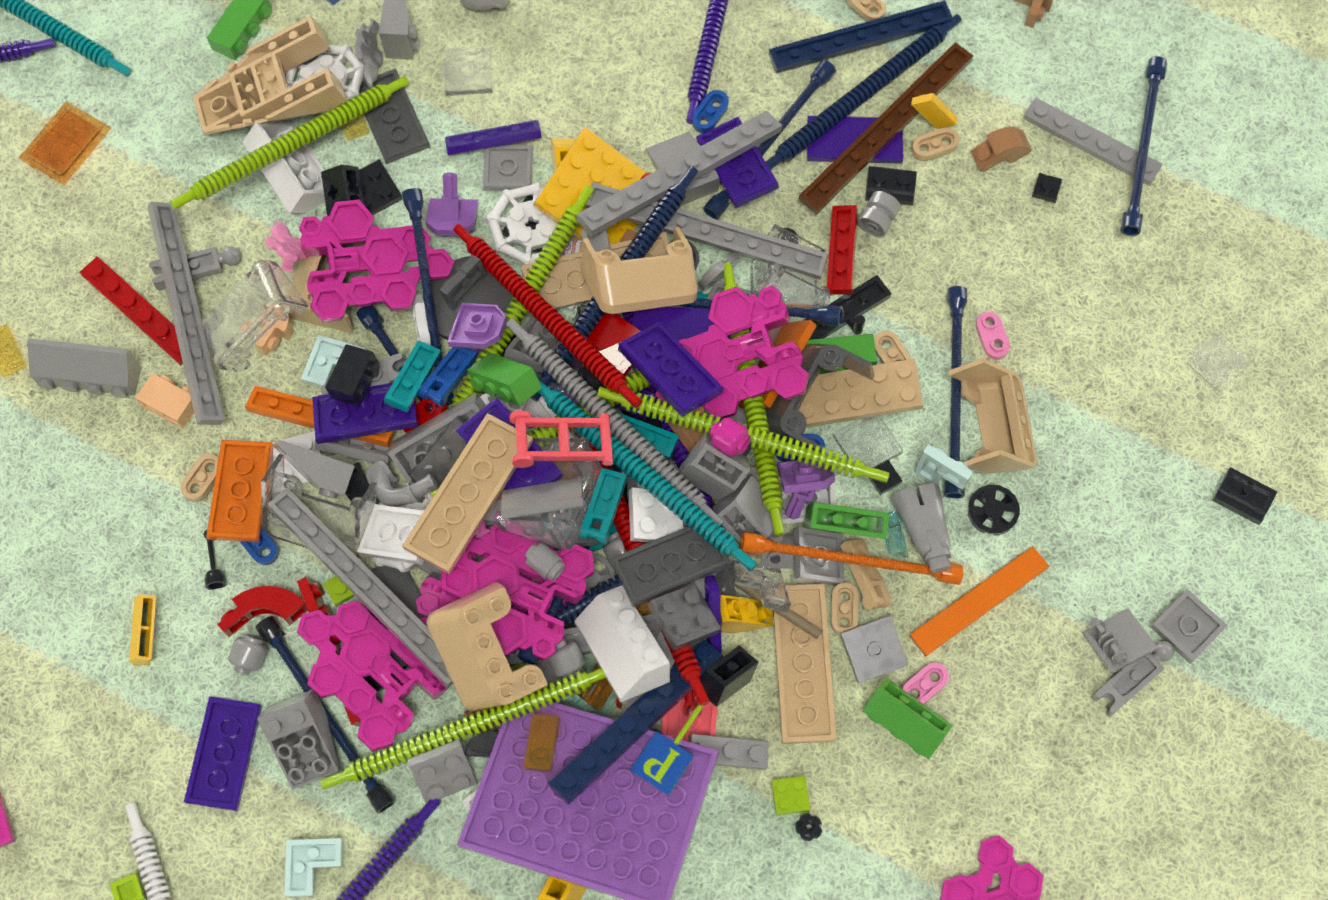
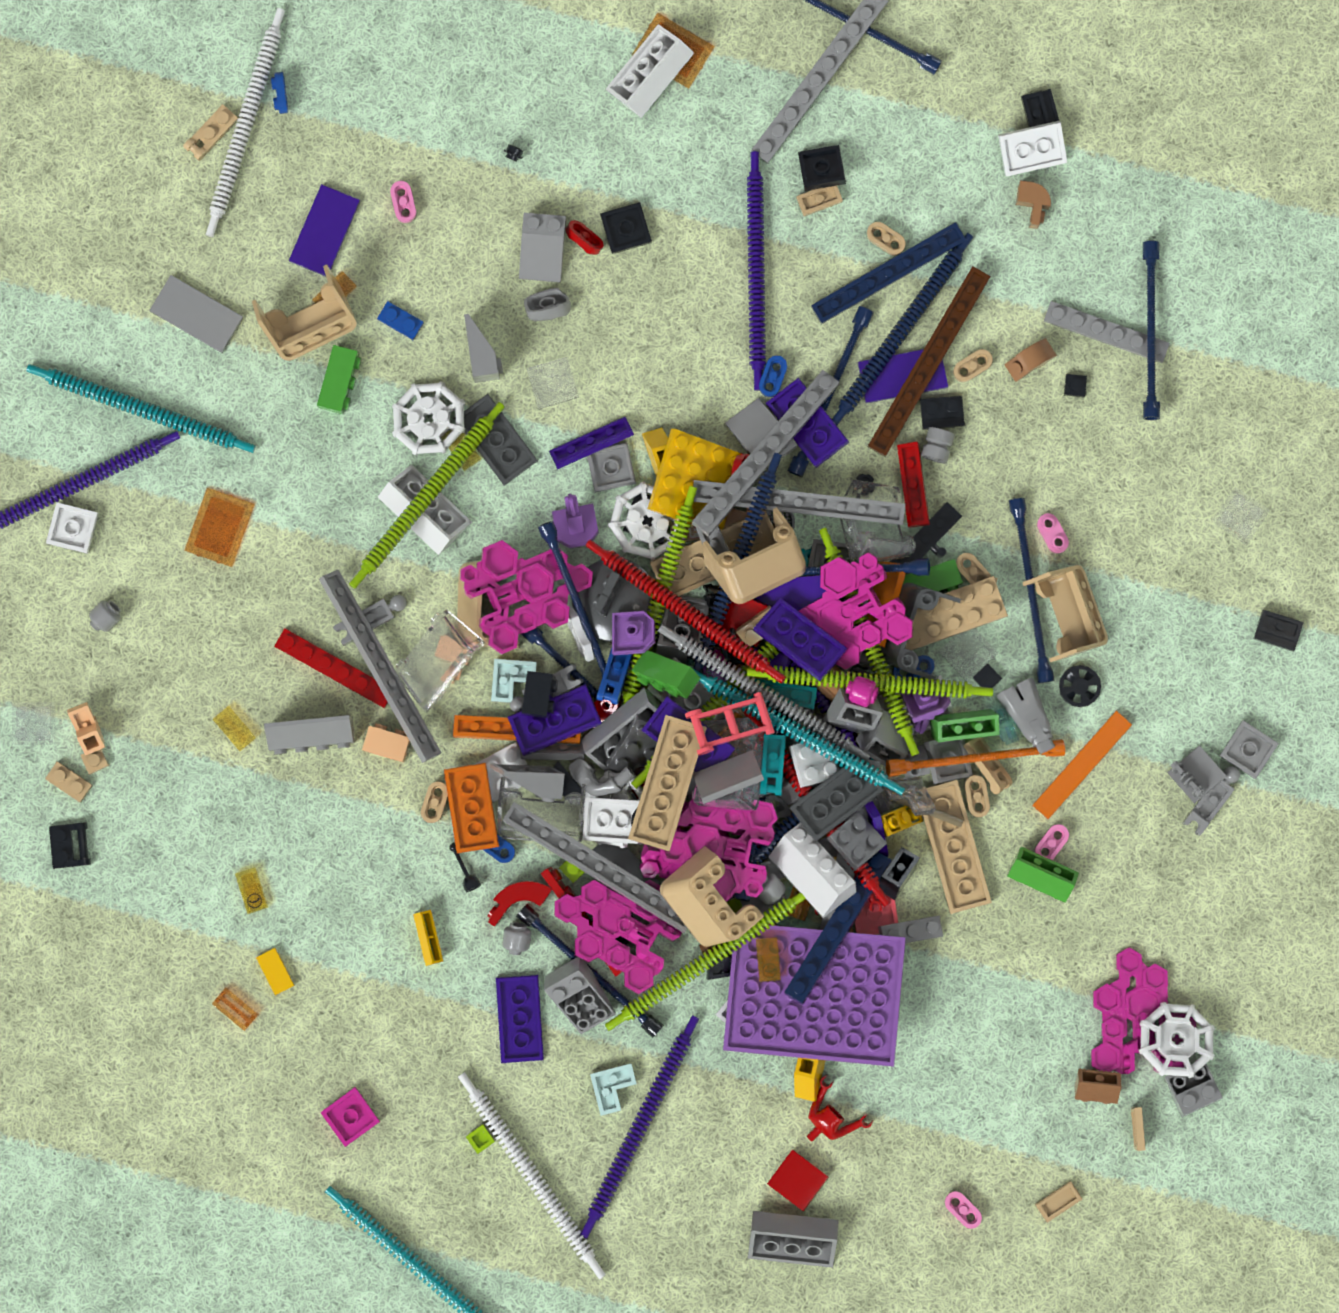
camera: 15 degrees left, 15 degrees up
(258, 88) = (374, 448): tan wedge -> none
(285, 246) = (450, 590): bright pink piece -> none
(341, 184) = (479, 527): black brick -> none
(367, 49) = (459, 384): light grey piece -> none
(378, 188) = (498, 514): black plate -> none
(412, 376) = (587, 684): teal plate -> none
(442, 771) = (696, 996): light grey plate -> none
(544, 562) = (739, 823): light grey brick -> none
(663, 760) = (865, 953): blue piece -> none
(716, 272) = (814, 531): light grey tile -> none
(790, 796) = (965, 953): lime piece -> none
(801, 827) = (984, 968): black plate -> none
(873, 649) = (1006, 824): flat silver plate -> none
(934, 111) = (967, 339): yellow tile -> none
(936, 464) = (1027, 664): light aqua plate -> none

